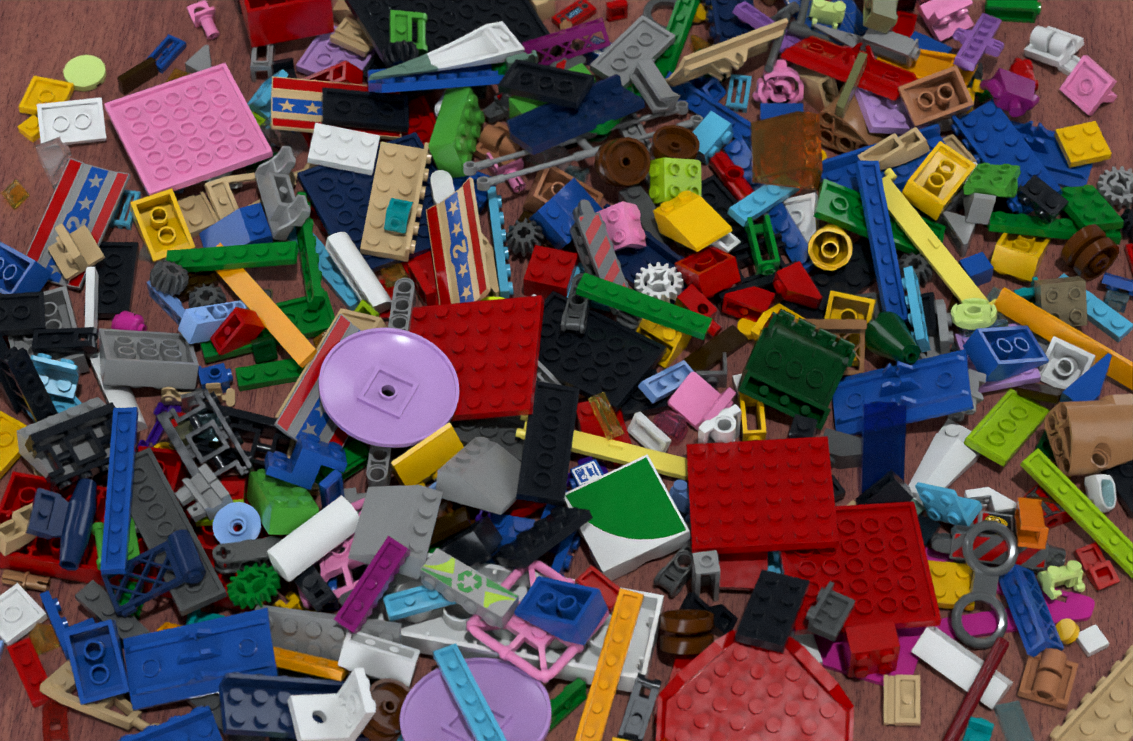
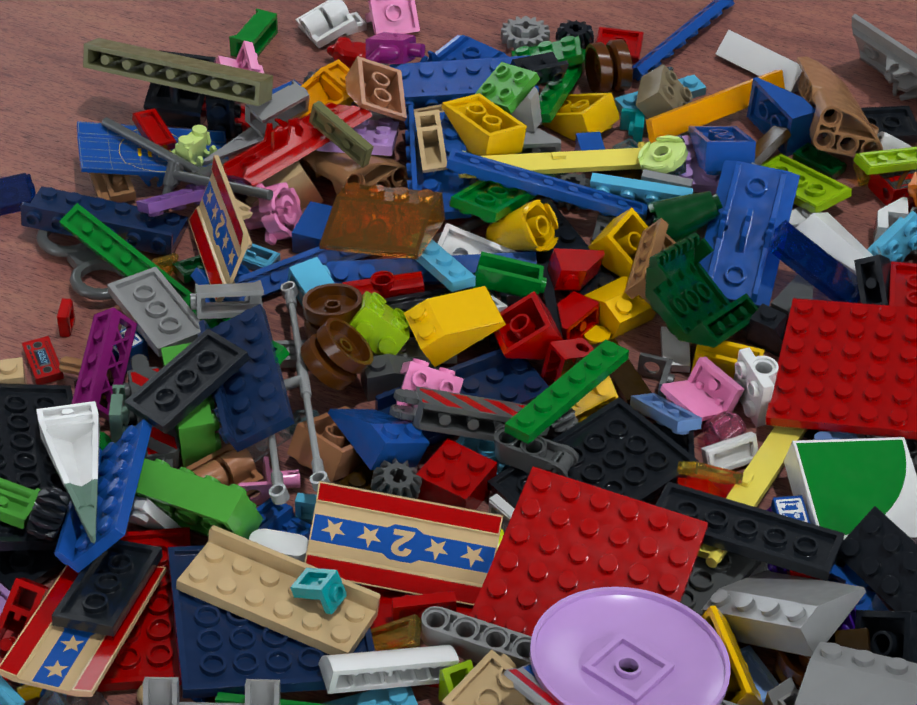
camera: 75 degrees left, 10 degrees down
(343, 149) = (168, 625): white plate -> none
(659, 282) = (521, 379): white gear -> none
(977, 42) = (313, 53): medium lavender hinge -> none
(1065, 363) = (740, 114): white slope -> none
(1082, 144) = (464, 37): yellow plate -> none

